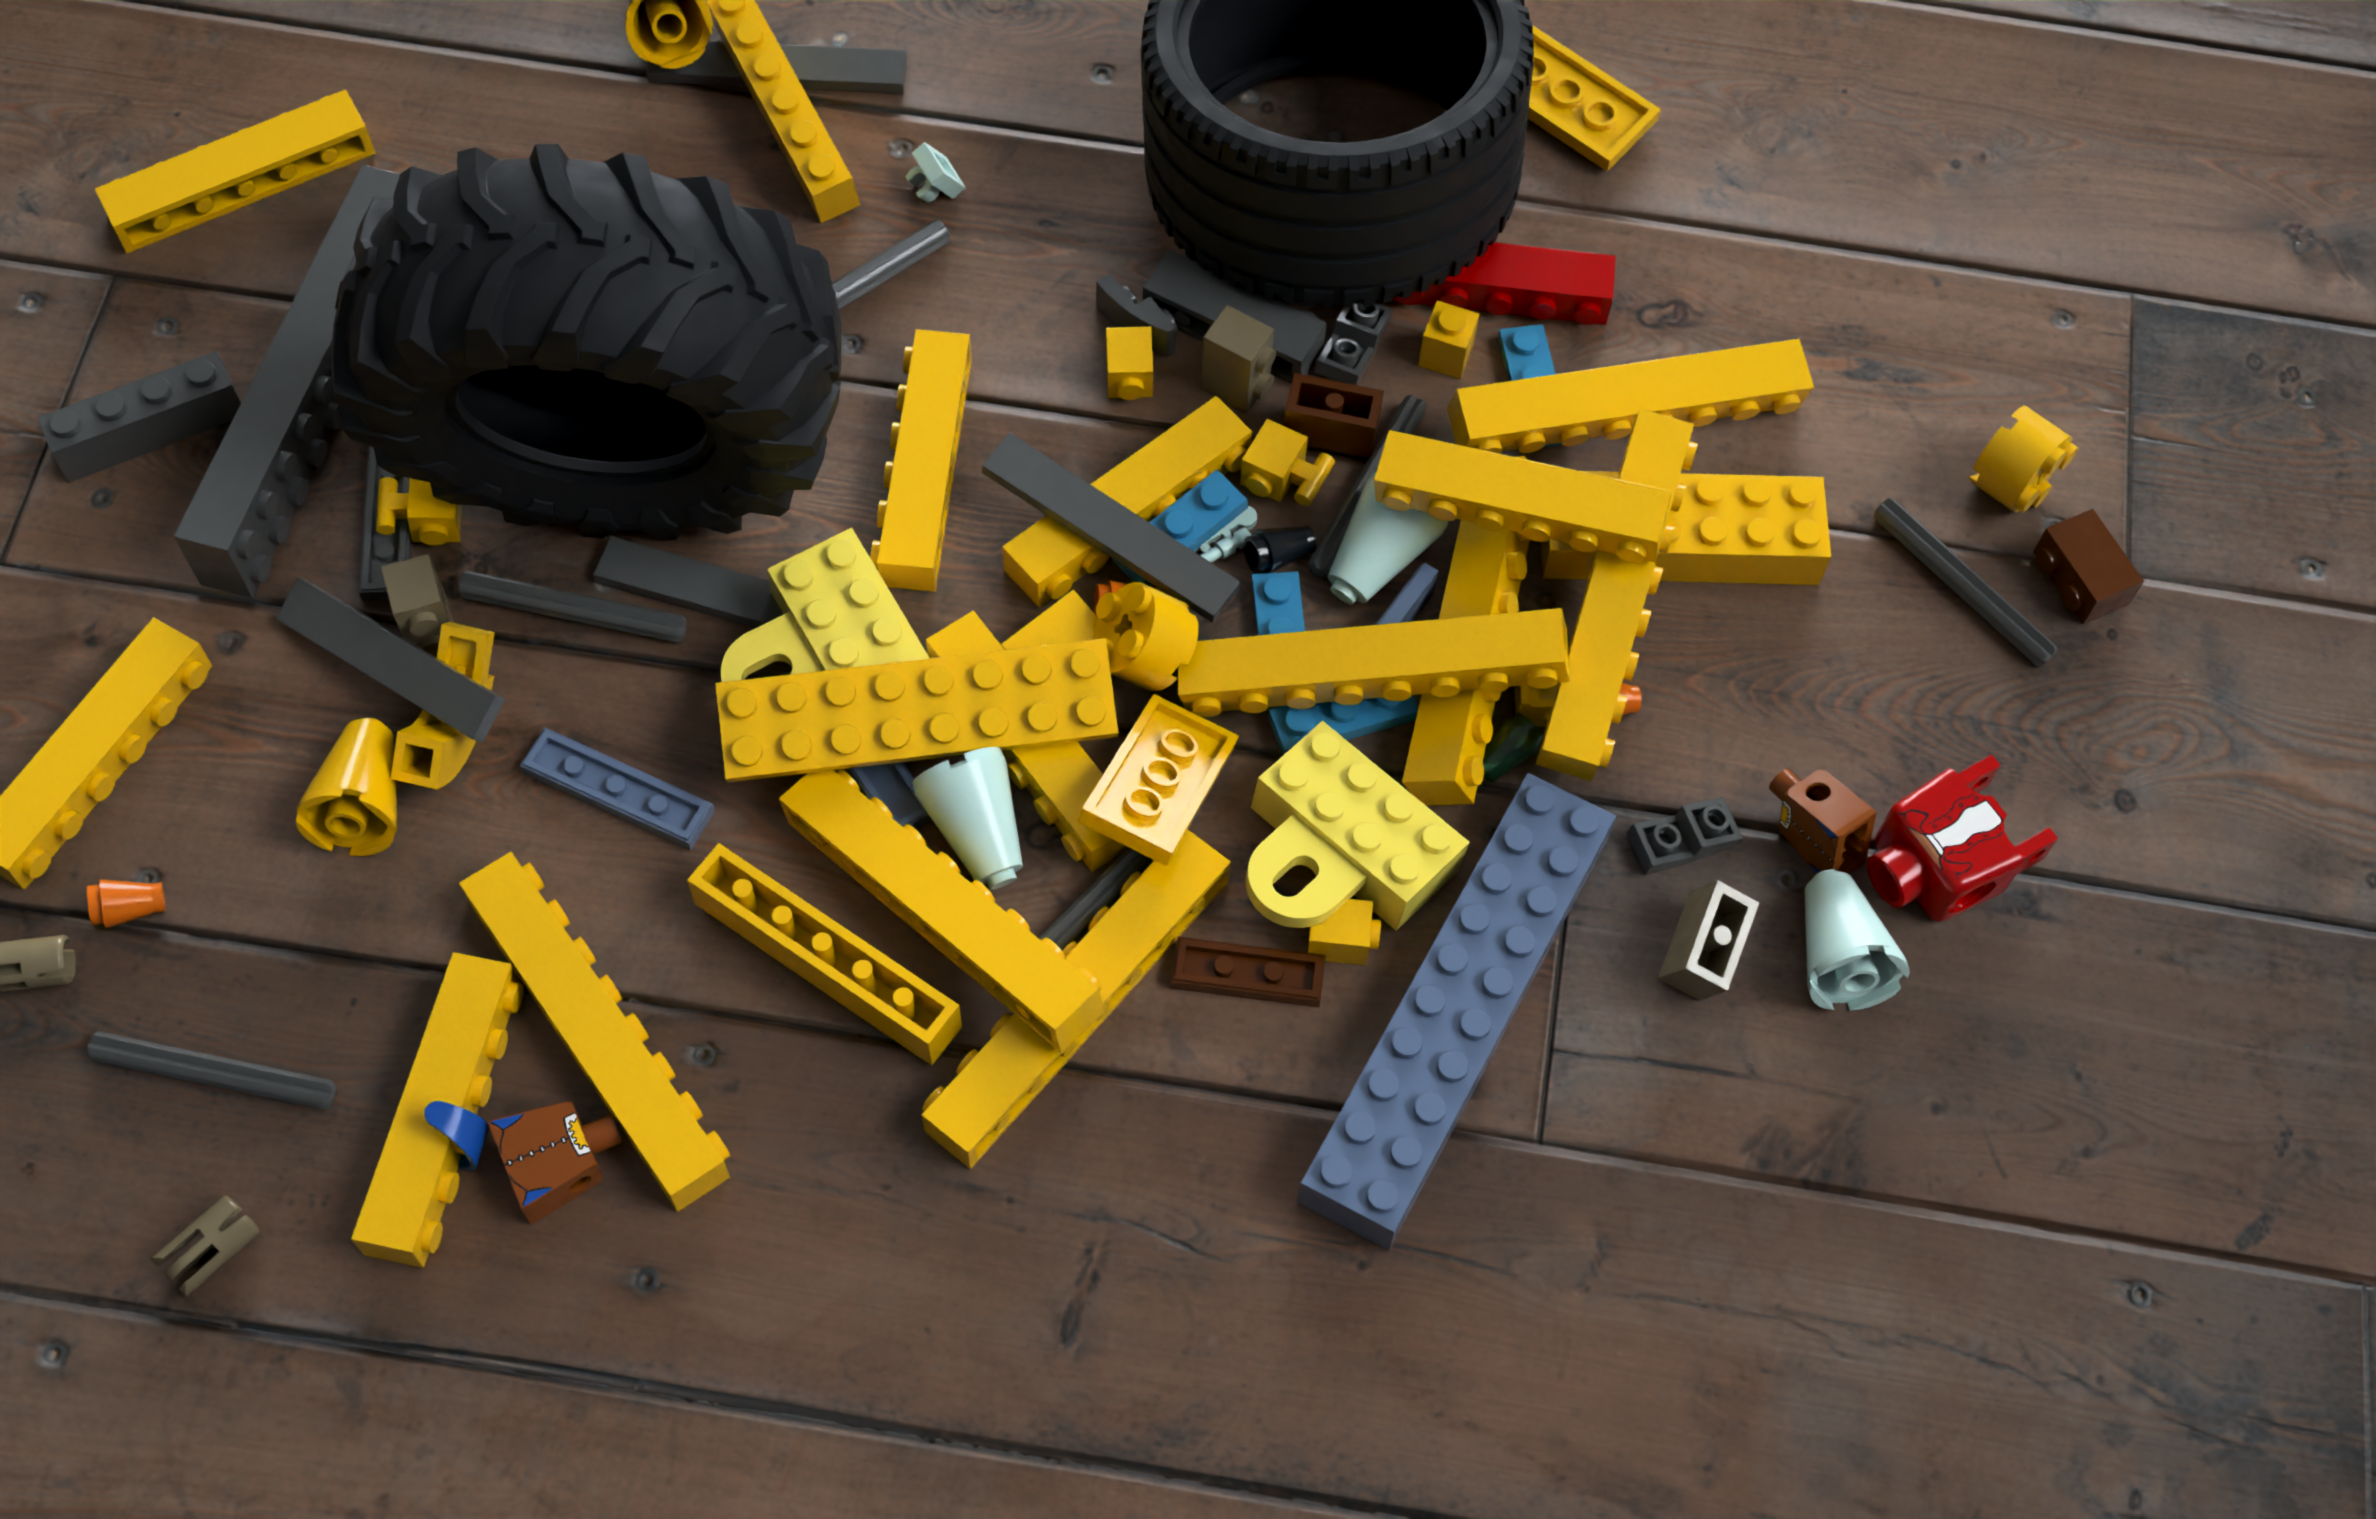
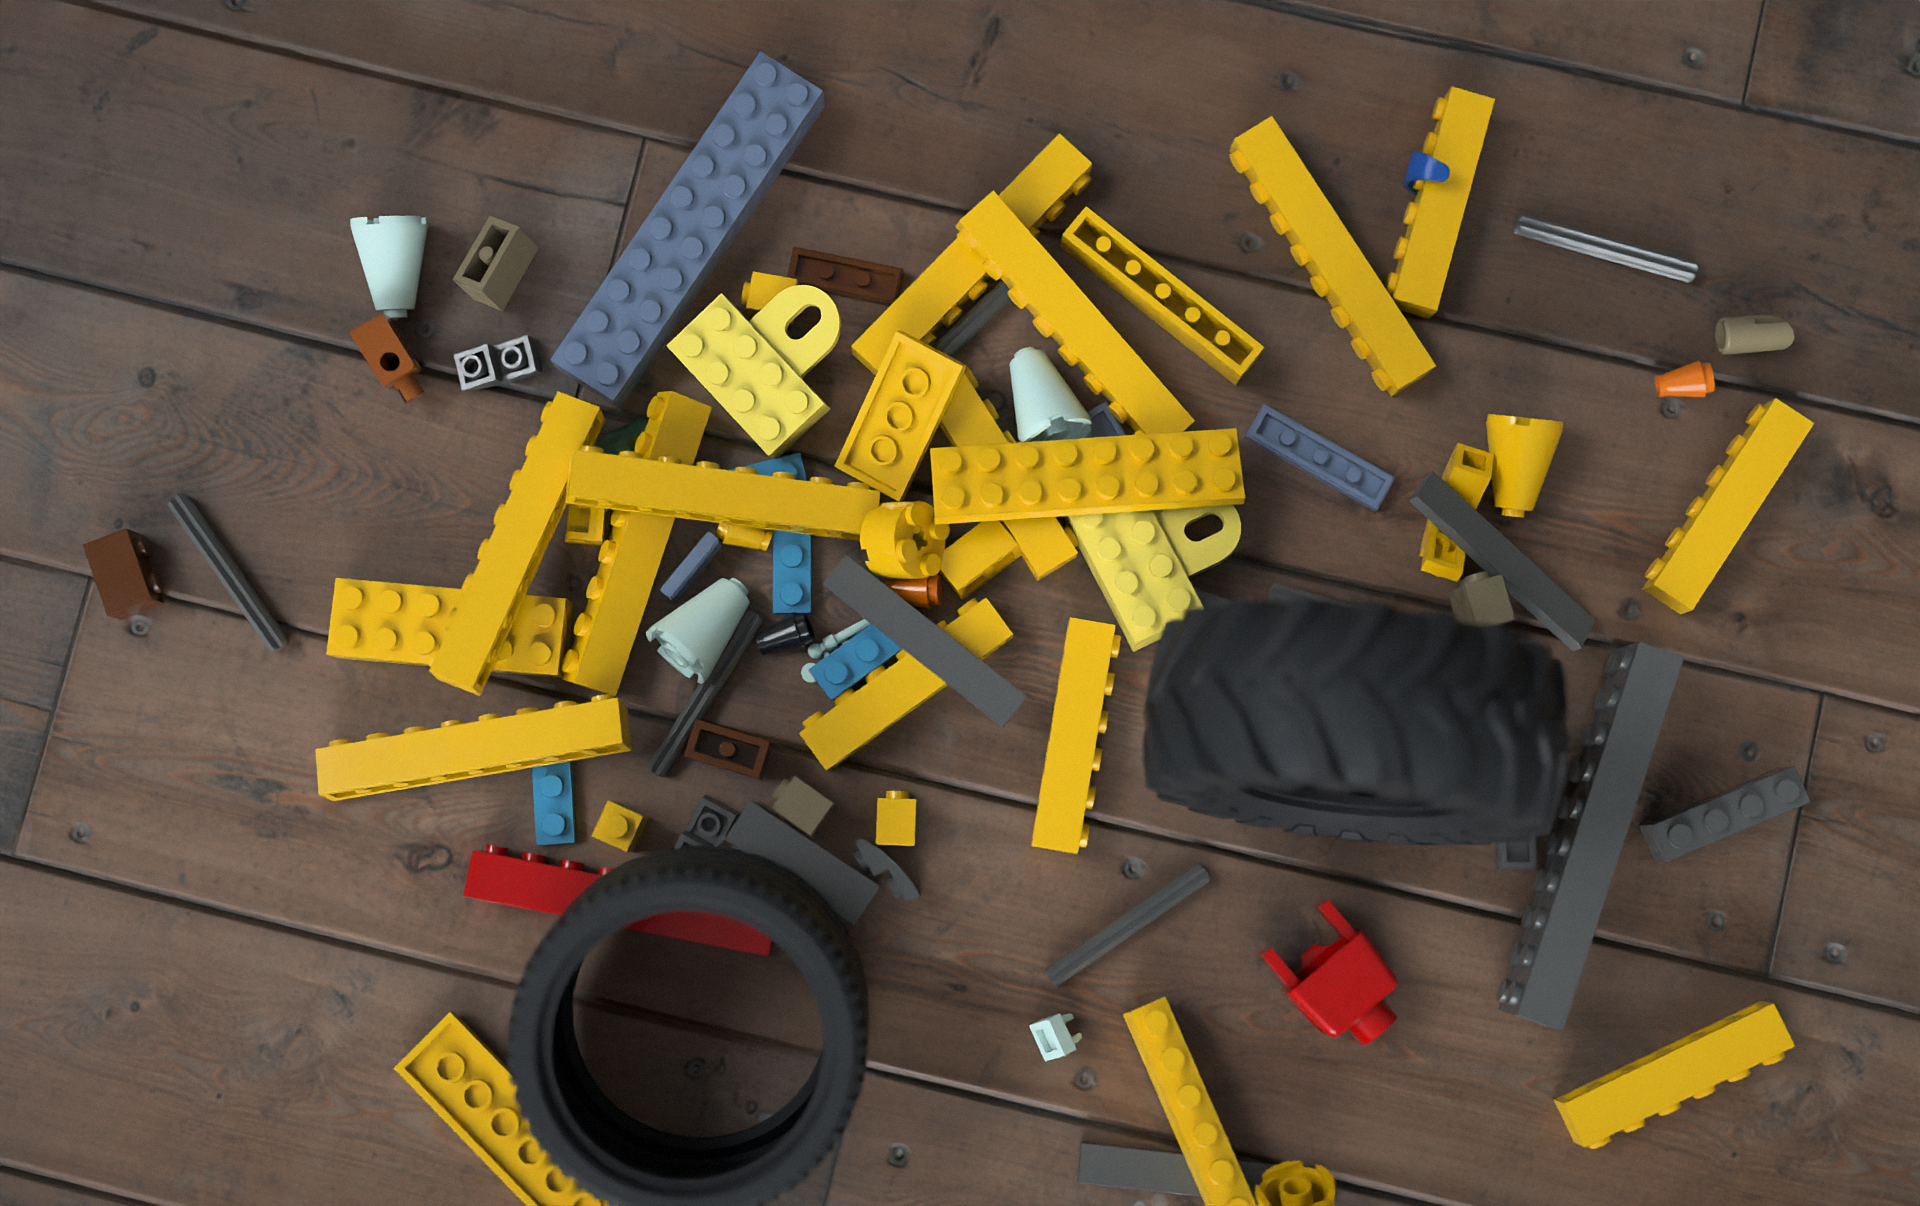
camera: 175 degrees left, 20 degrees up
(212, 1226) = (1595, 116): dark tan arm -> none
(552, 1155) = (1359, 162): dark orange torso -> none
(1278, 460) = (780, 714): yellow brick -> none
(1522, 497) = (583, 607): yellow brick -> none
(1950, 845) = (297, 323): red piece -> none
(2022, 460) = (153, 665): yellow brick -> none

